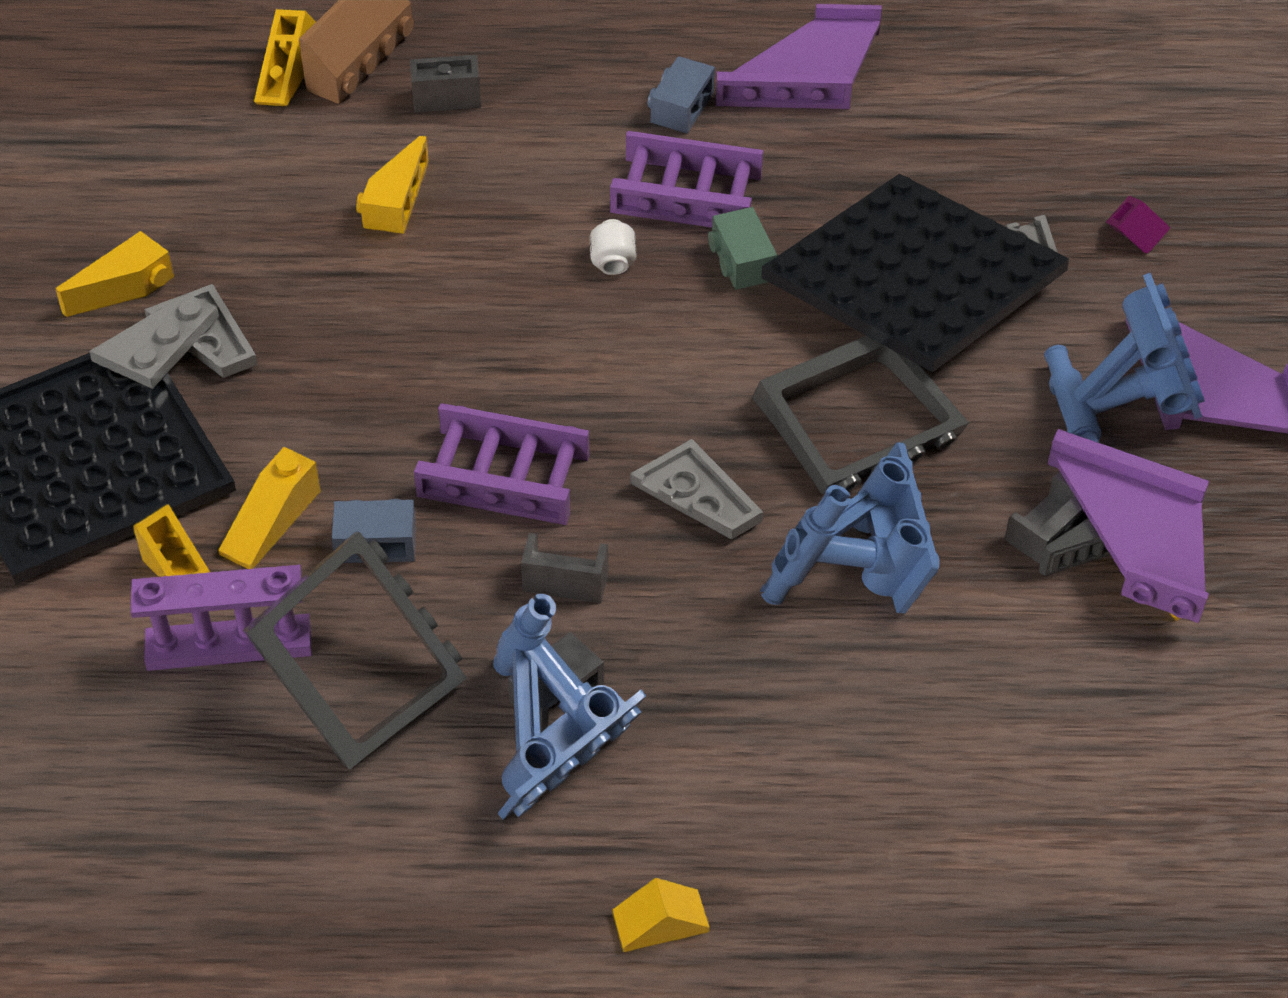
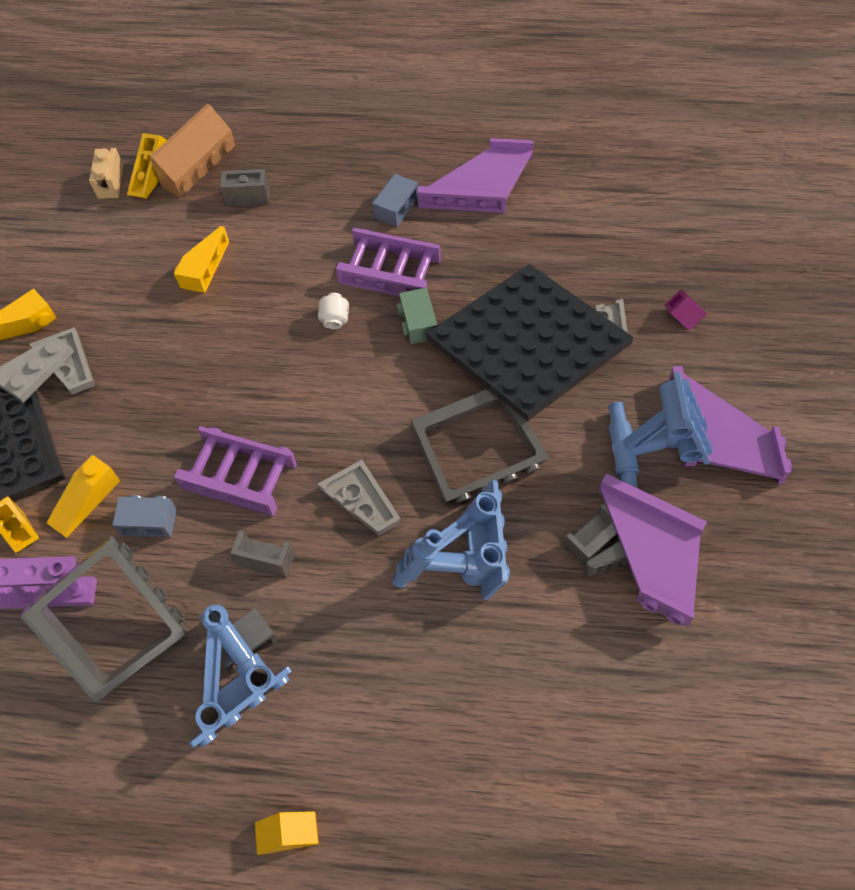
camera: 10 degrees right, 10 degrees up
(219, 62) = (109, 168): none -> tan brick

